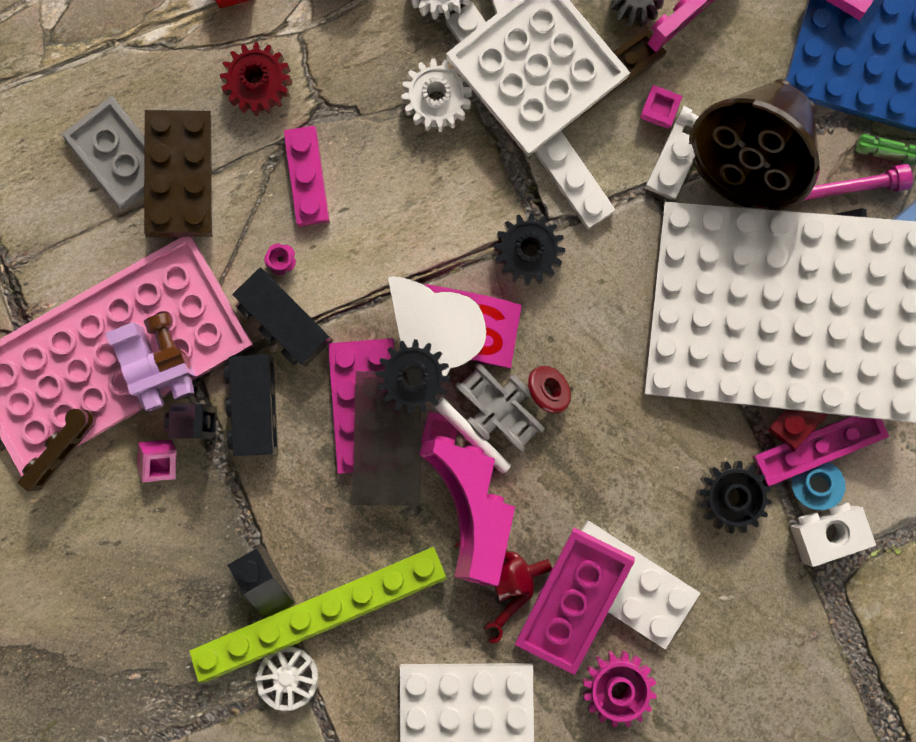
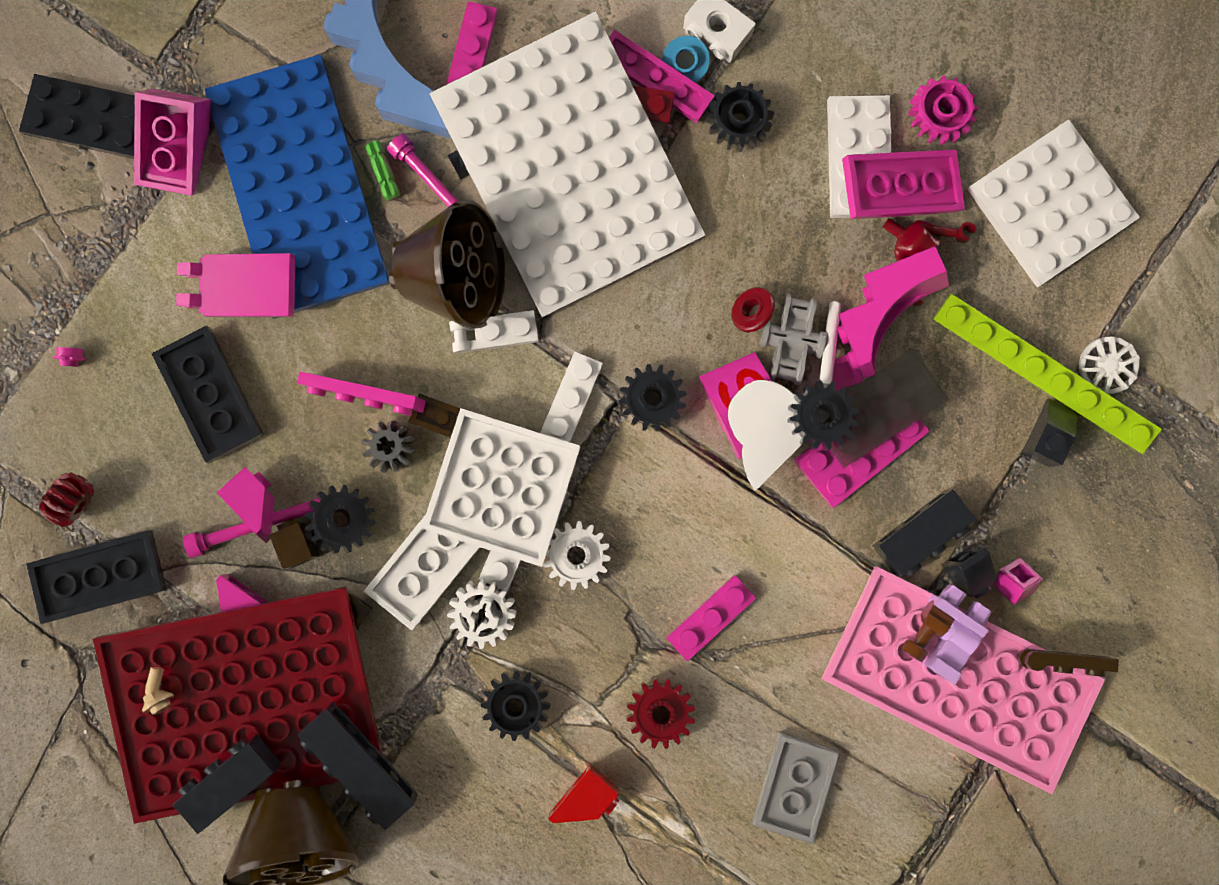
camera: 125 degrees left, 0 degrees up
(178, 173) = (781, 722): dark brown plate -> none
(276, 251) = (798, 598): dark pink plate -> none
(281, 318) = (840, 557): black brick -> none
(661, 106) = (466, 369): dark pink plate -> none

